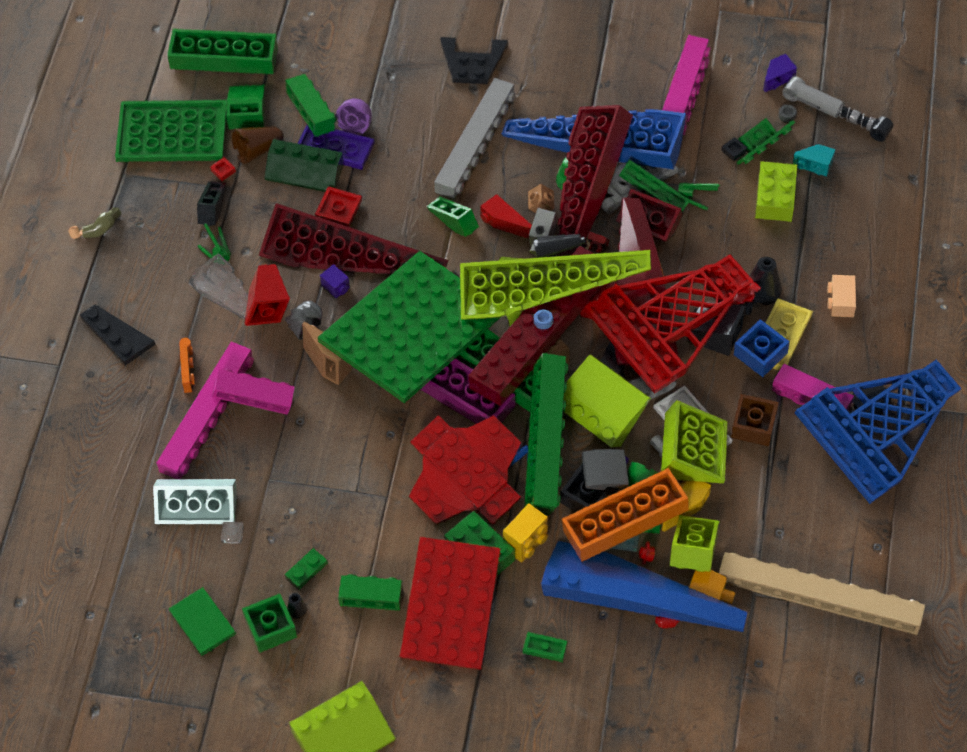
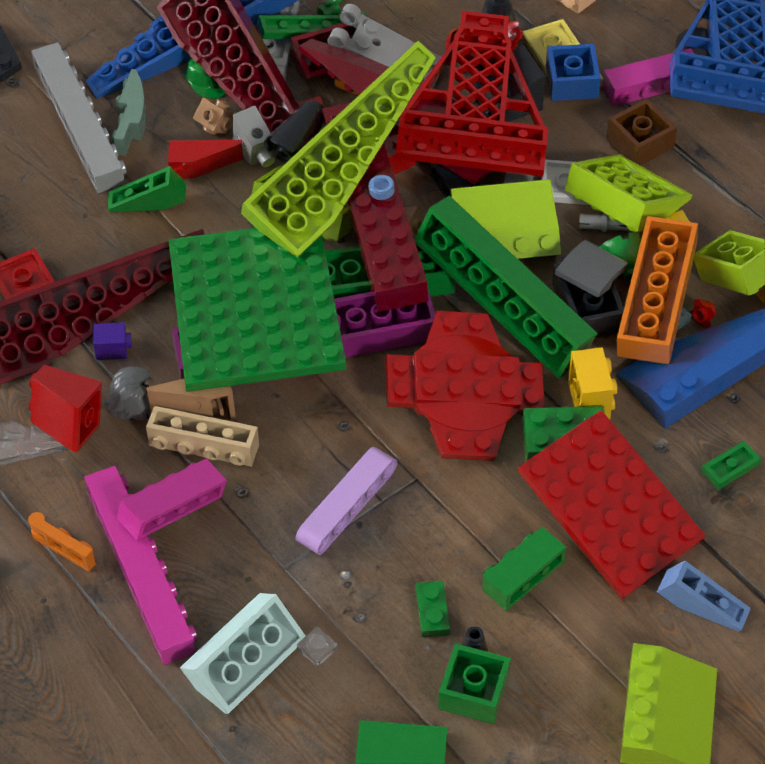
camera: 50 degrees left, 5 degrees down
(310, 374) = (202, 436): none -> tan brick
(336, 473) = (346, 500): none -> lavender beam
(434, 698) = (702, 596): none -> medium blue slope
(510, 157) = (132, 113): none -> sand green slope
(680, 251) = (390, 43): none -> light grey hinge

